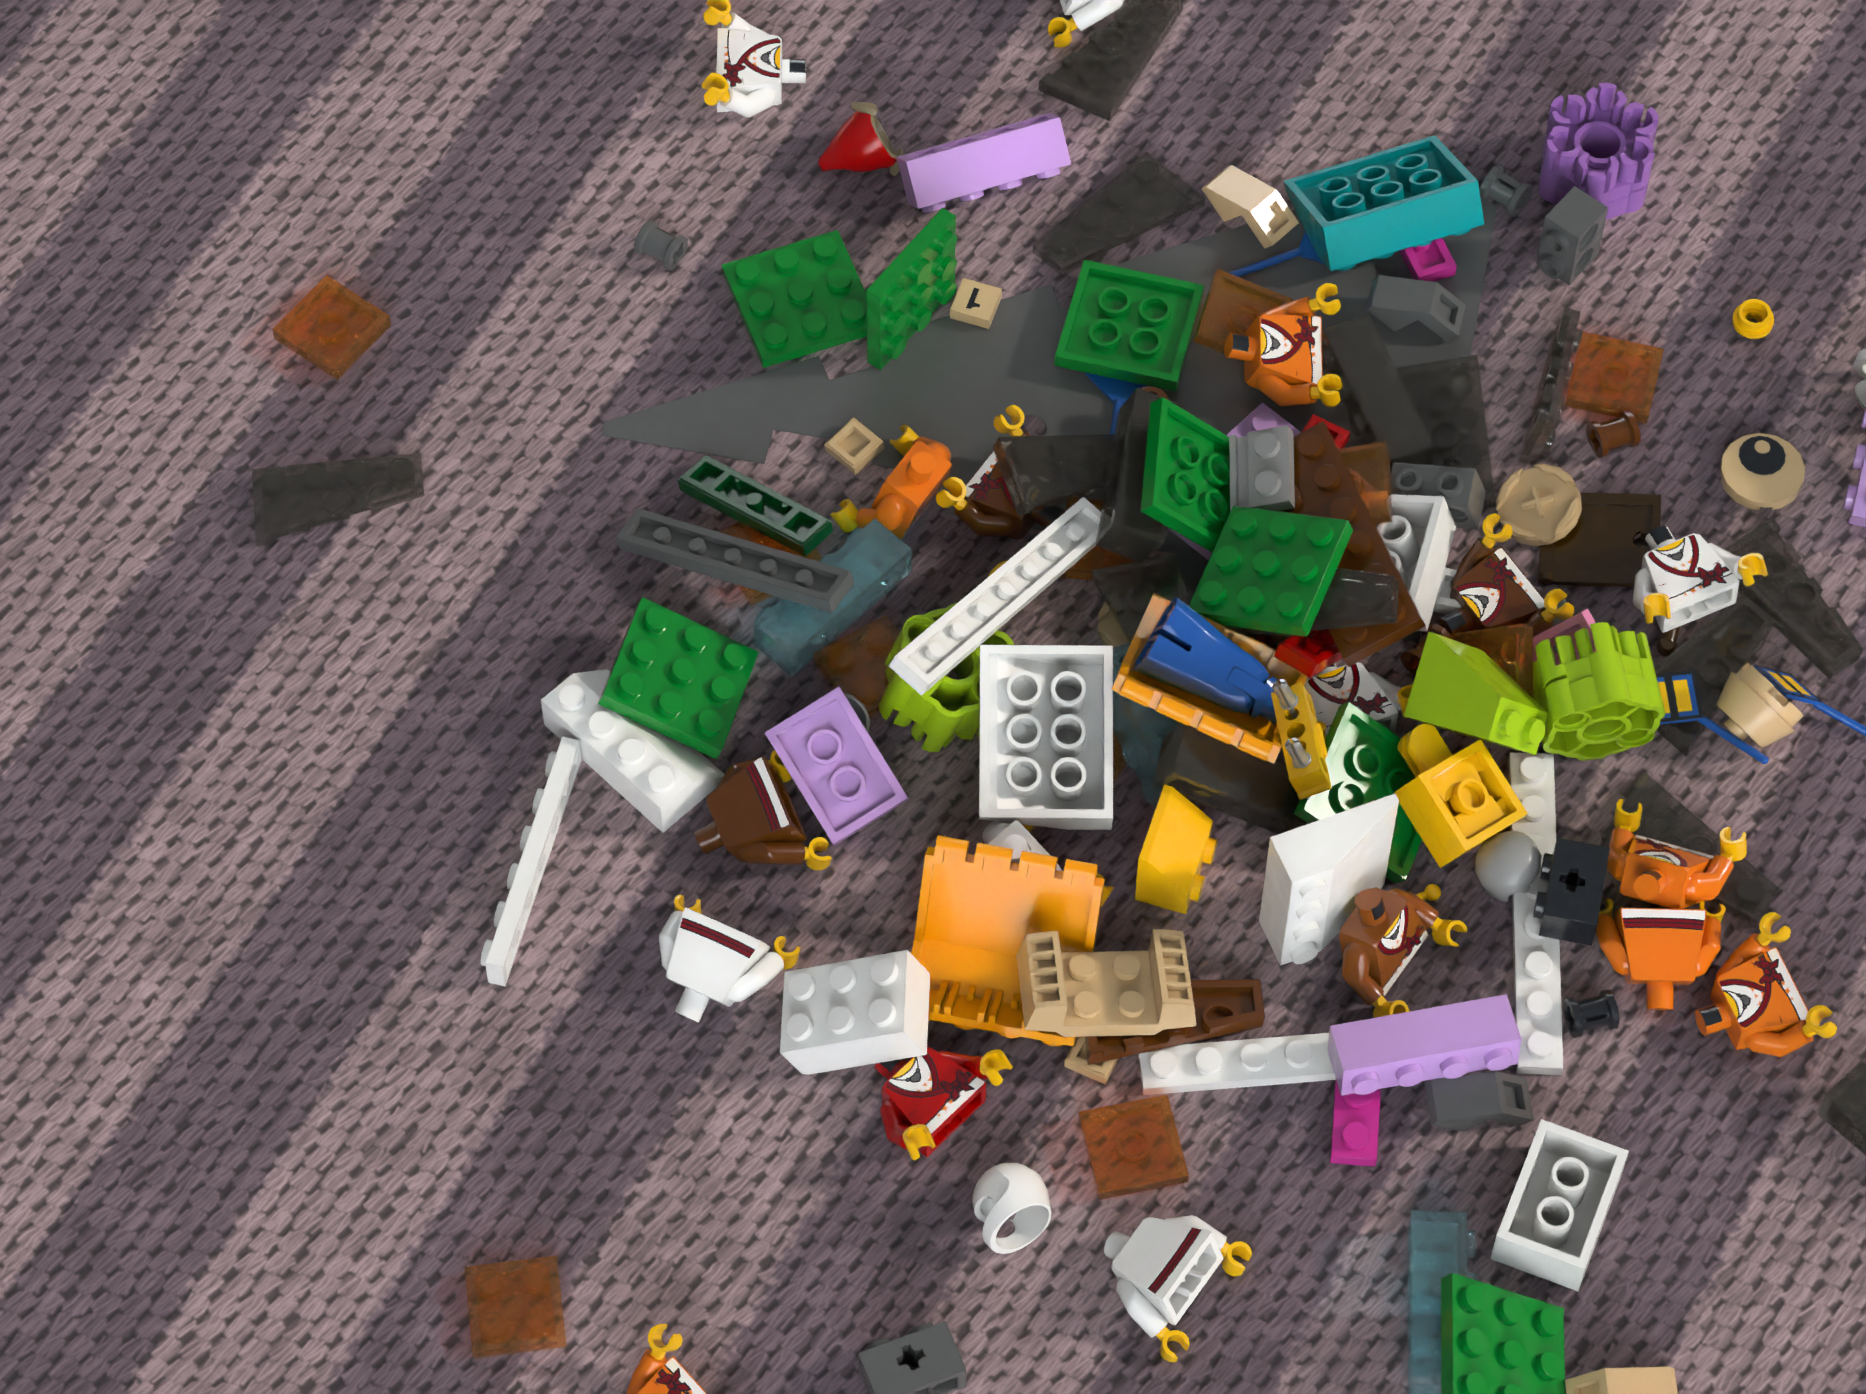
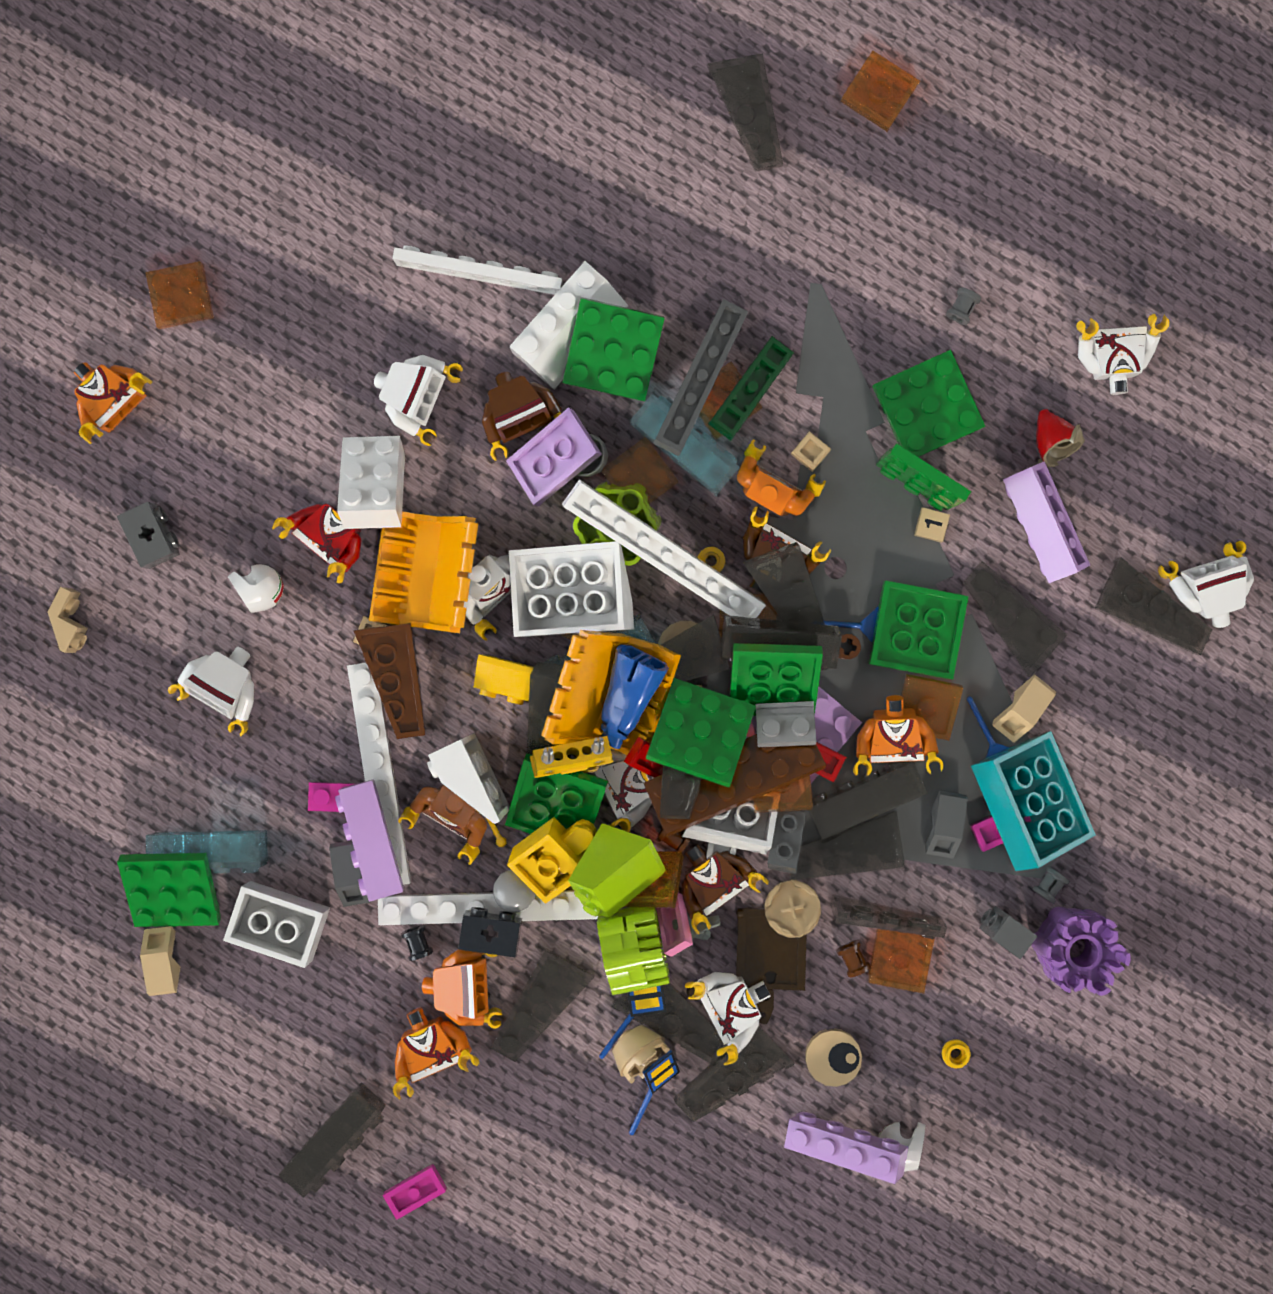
camera: 85 degrees right, 30 degrees up
(1105, 990) = (397, 638): tan plate -> none
(1133, 1147) = (307, 661): clear orange plate -> none
(1665, 871) = (509, 991): orange torso -> none

